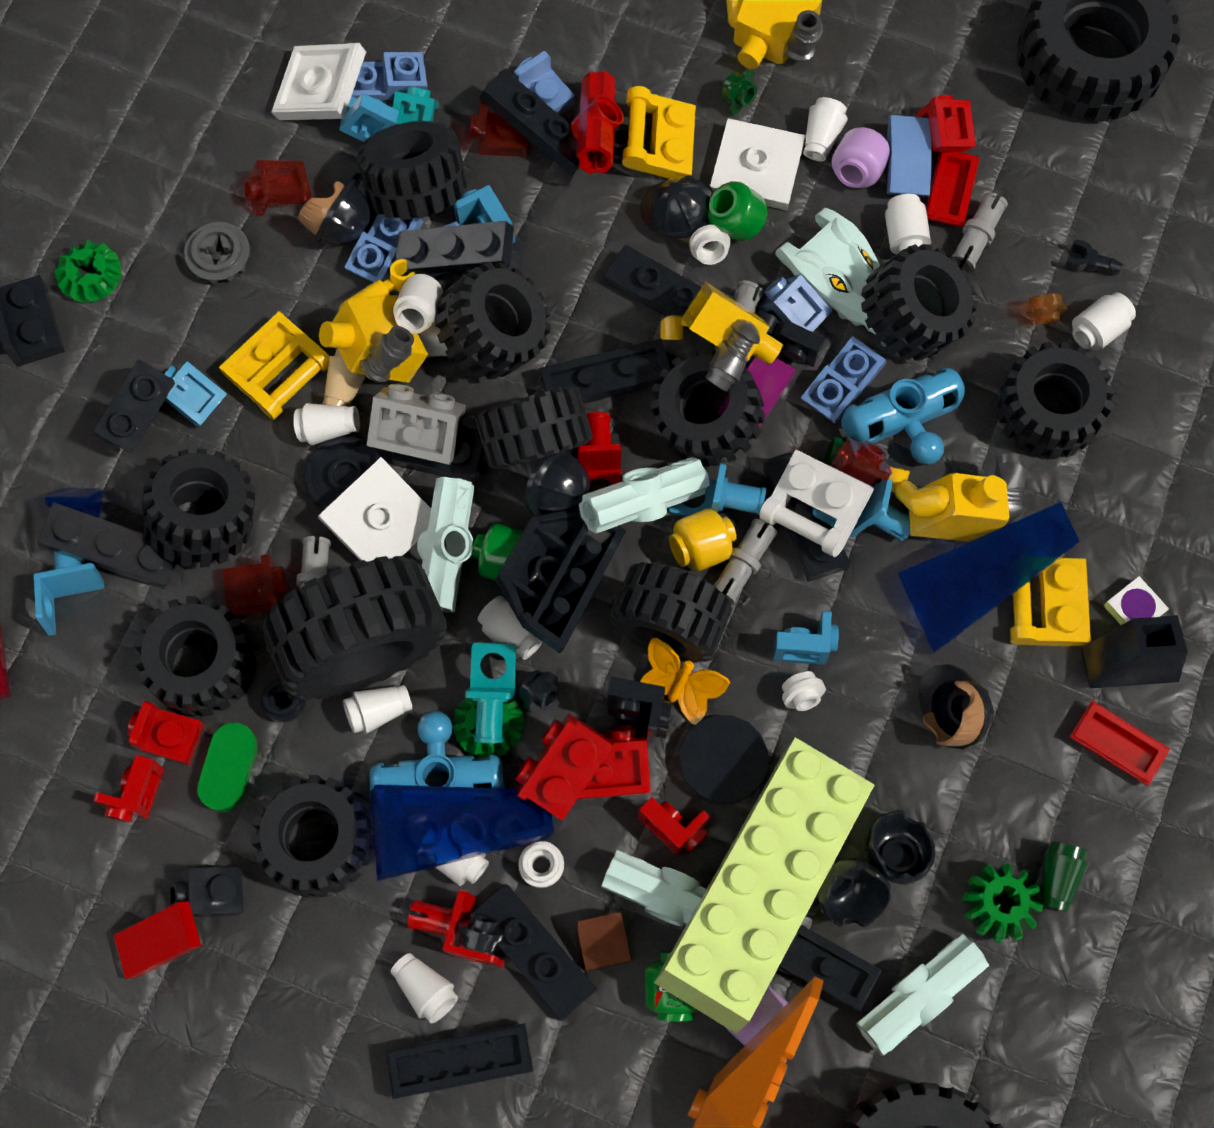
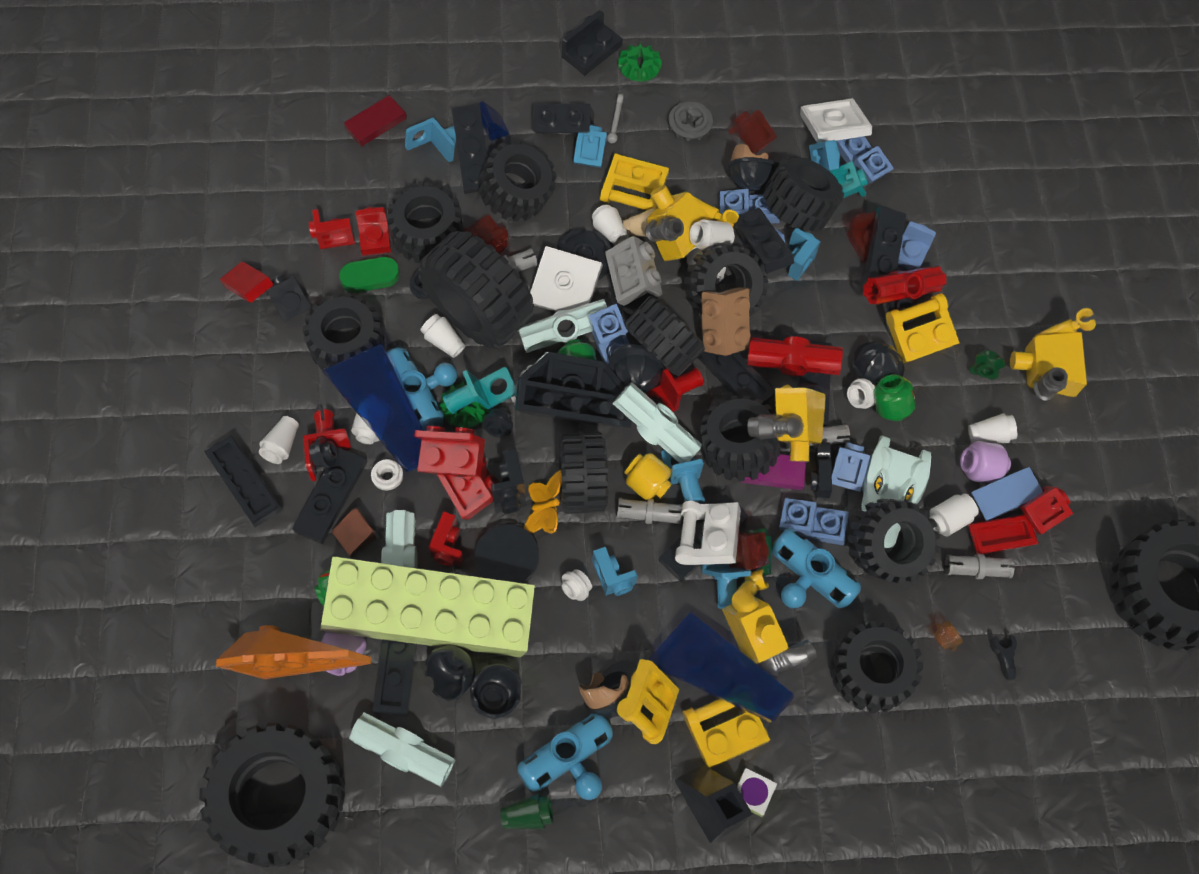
camera: 60 degrees right, 5 degrees down
(135, 326) = (612, 137): none -> light grey hinge
(492, 495) = (608, 331): none -> medium blue slope
(550, 345) = (726, 321): none -> medium nougat bracket
(631, 292) = (795, 356): none -> red piece
(761, 159) = (943, 401): white plate -> none
(985, 661) = (656, 693): none -> yellow plate
(1005, 772) = (582, 738): none -> dark azure piece
(1010, 920) = (480, 787): green gear -> none
(1103, 321) = (960, 680): white brick -> none
(1119, 743) = (644, 819): red tile -> none

